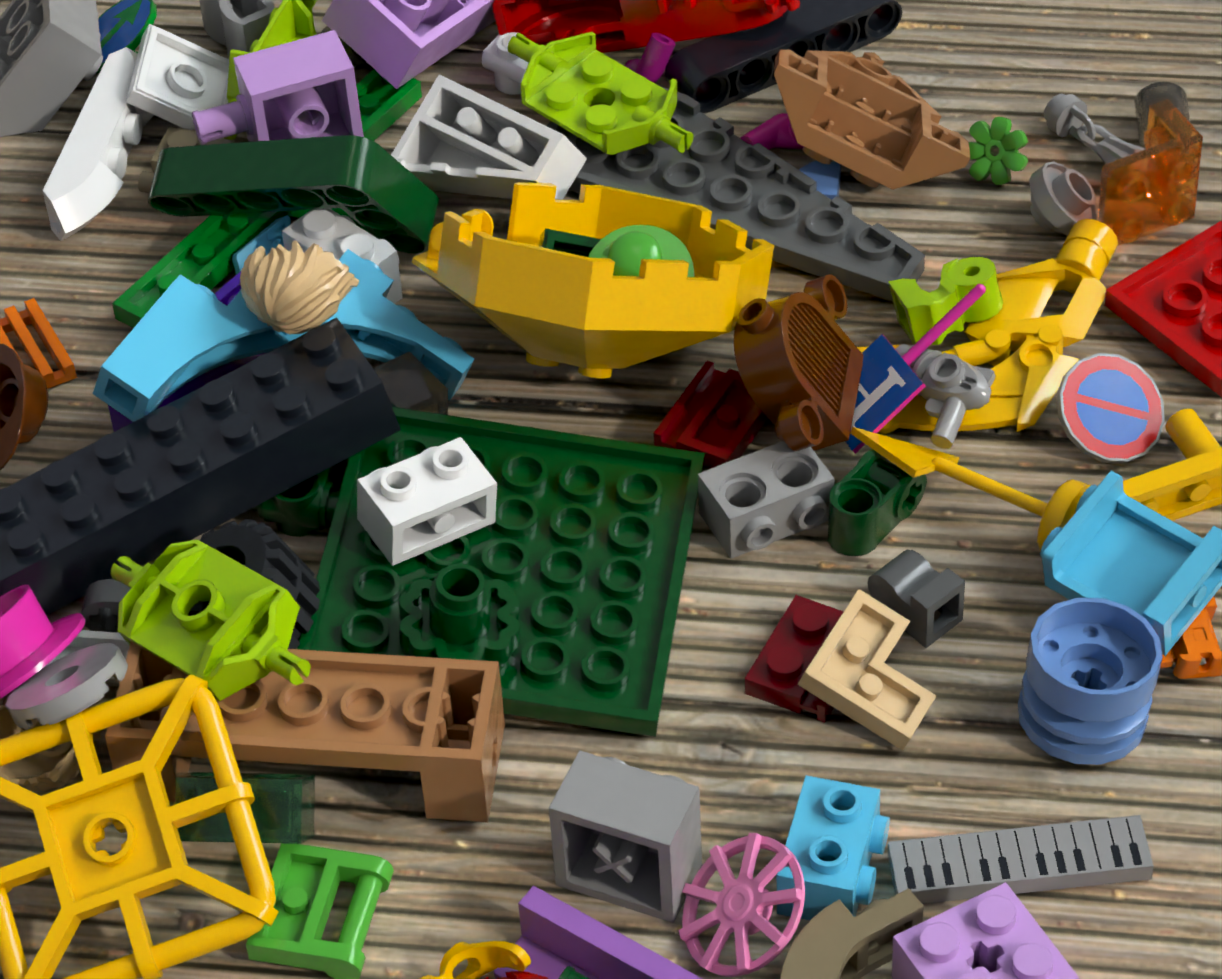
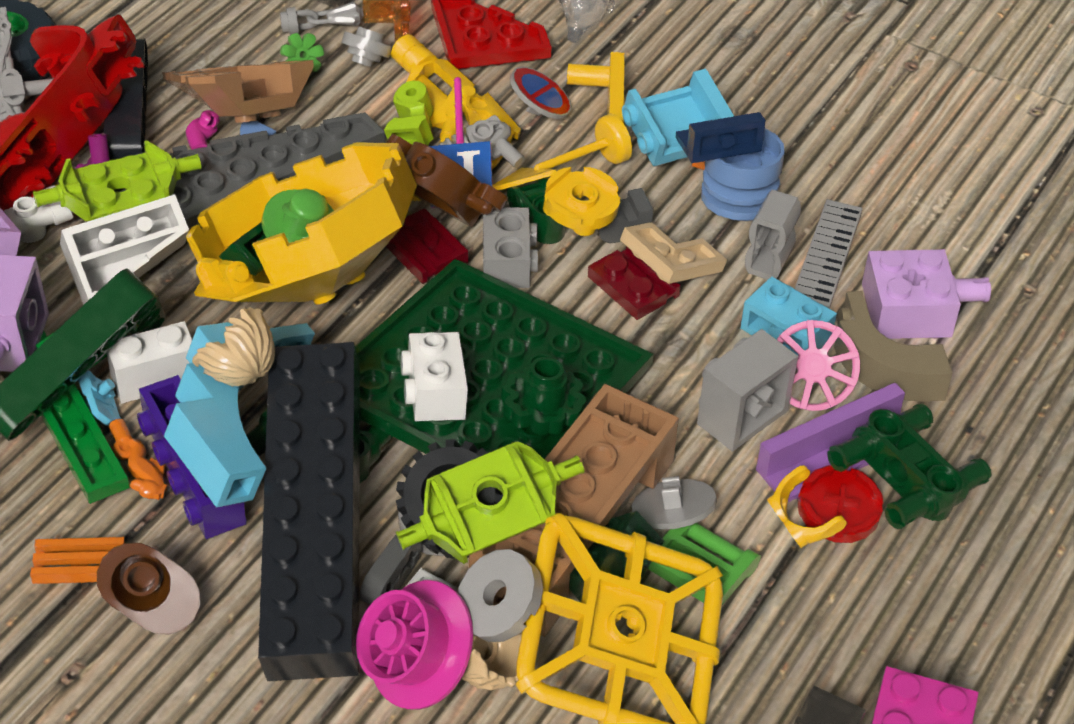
camera: 70 degrees left, 0 degrees up
(396, 843) = (675, 503): none -> light grey piece
(867, 547) = (580, 215): none -> yellow plate
(973, 760) = (772, 234): none -> light grey brick
(1072, 604) = (723, 137): none -> dark blue panel

